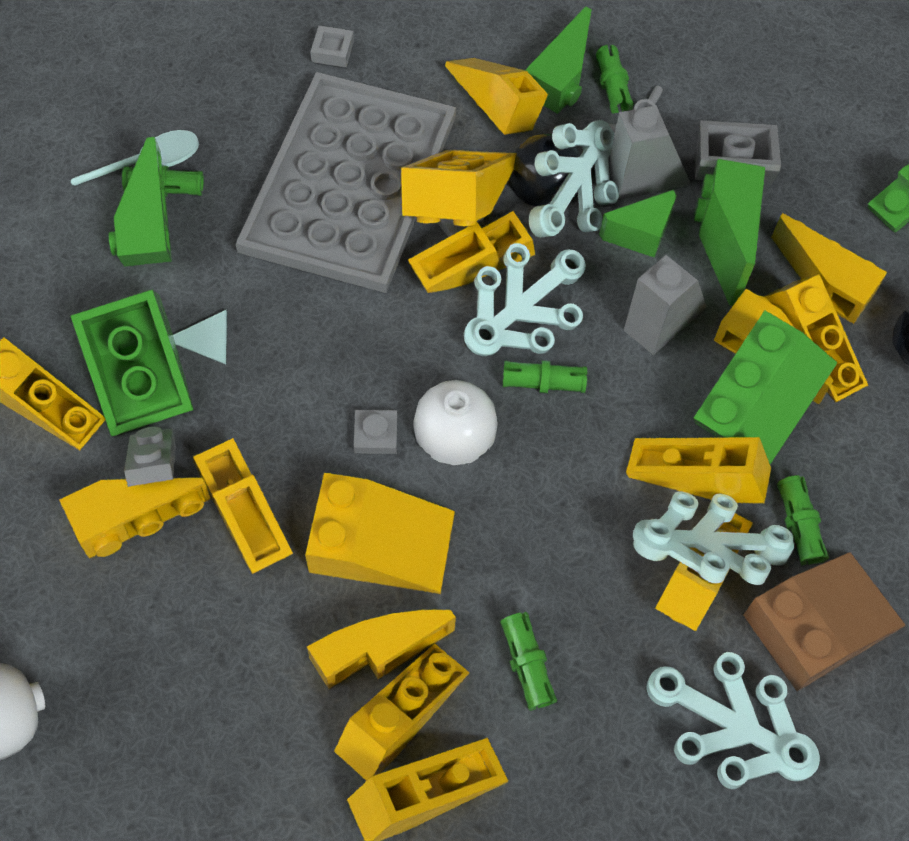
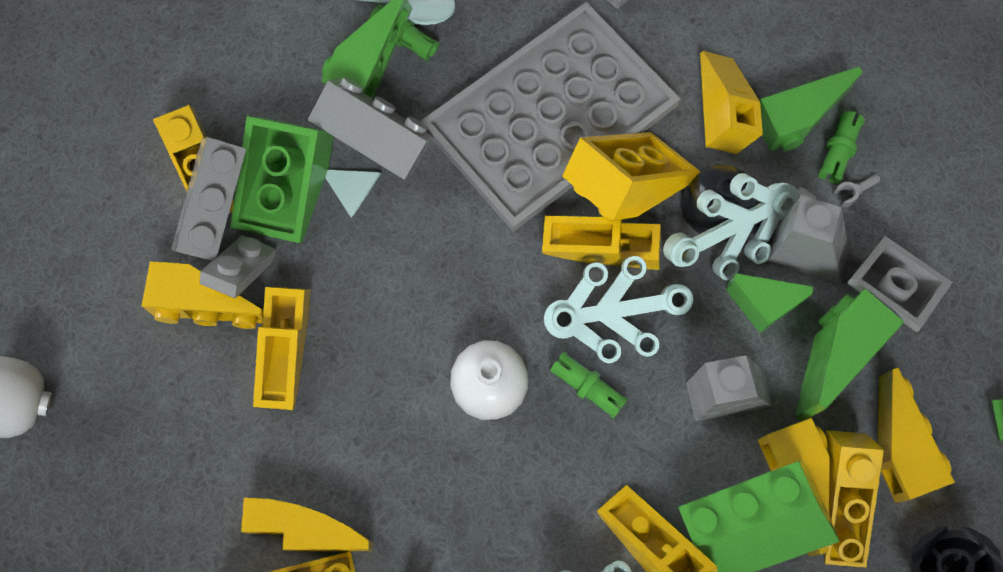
camera: 35 degrees right, 10 degrees up
(80, 412) = (208, 199): none -> light grey brick
(196, 266) = (371, 126): none -> light grey brick
(375, 431) = (423, 347): light grey plate -> none
(378, 535) = (365, 438): yellow slope -> none

